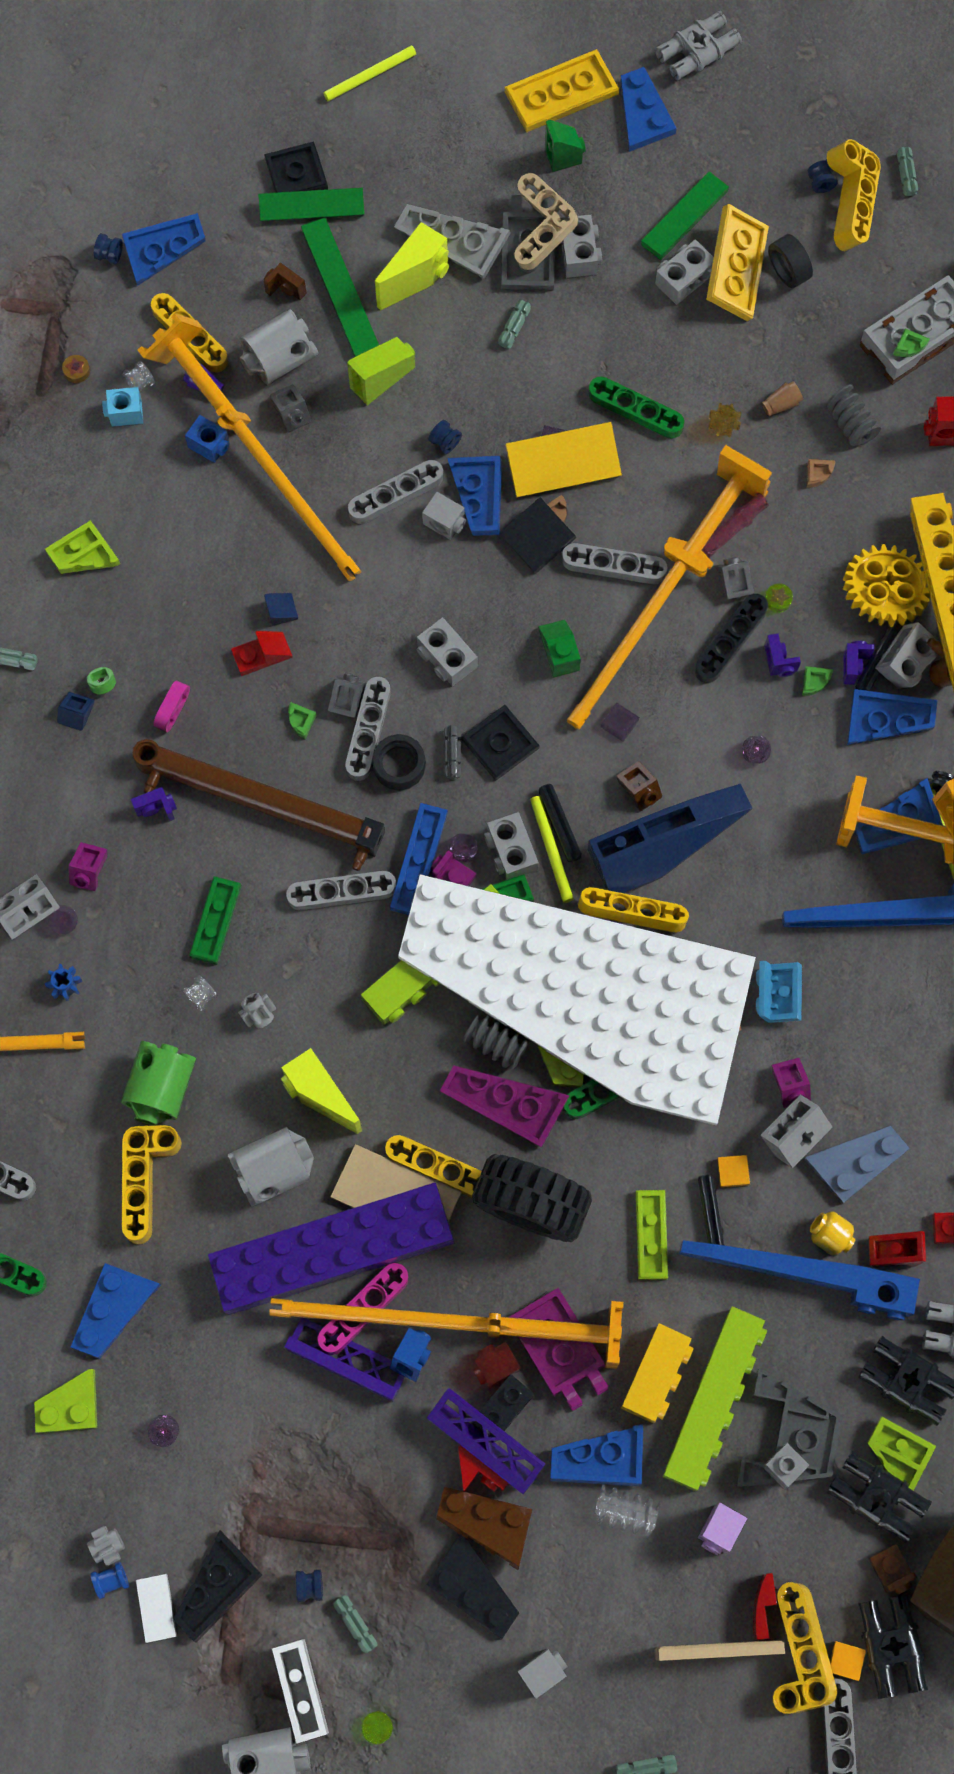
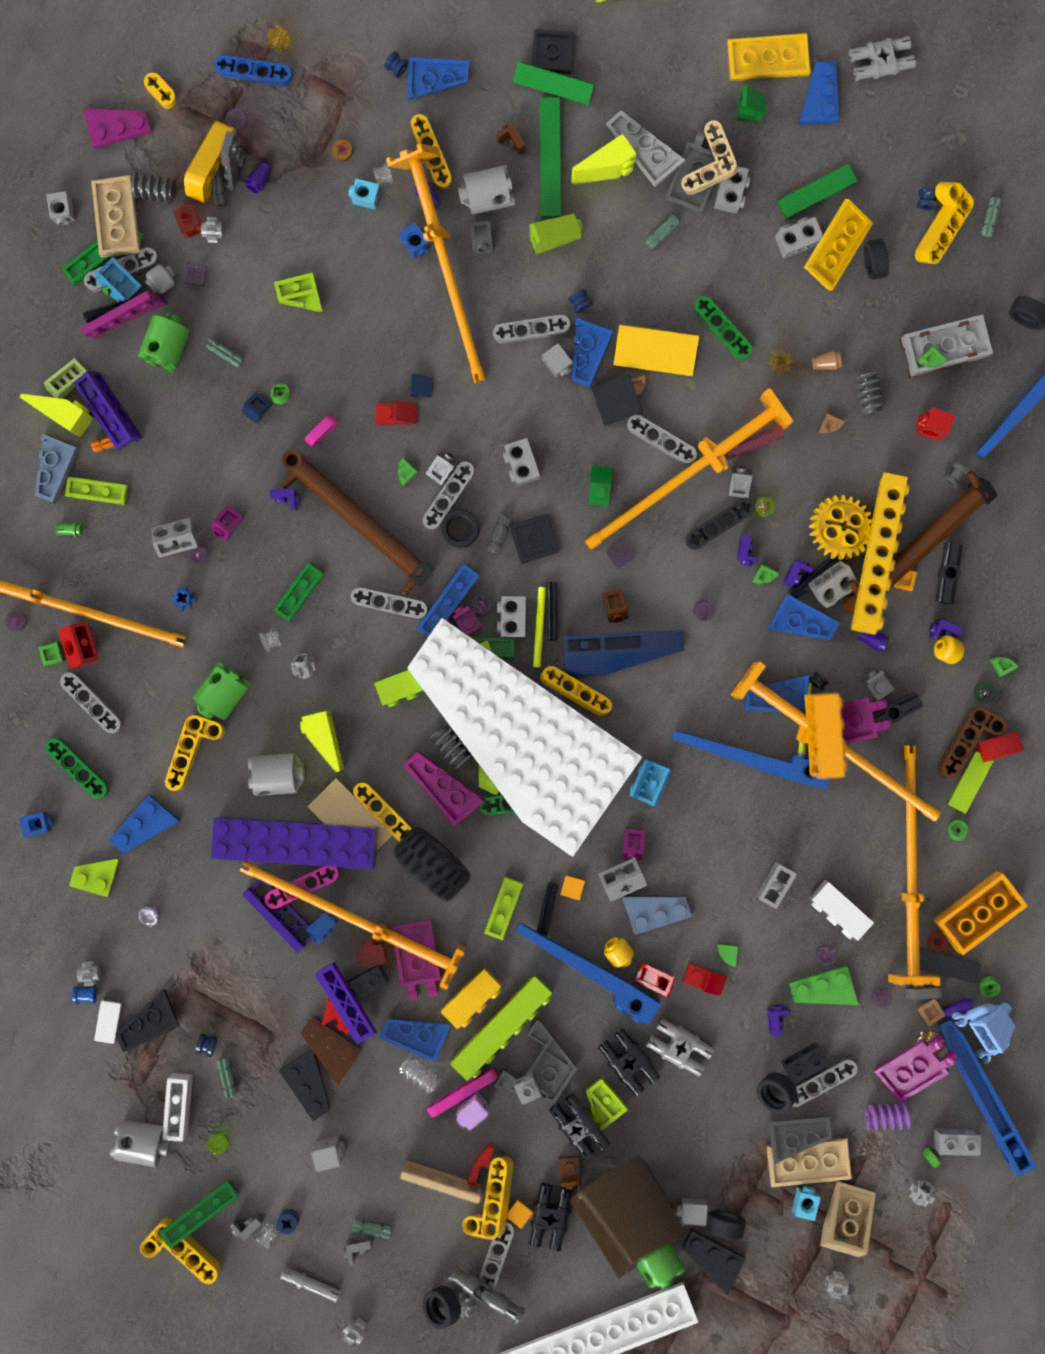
camera: 20 degrees right, 15 degrees up
(696, 1513) = (462, 1092): none -> dark pink beam

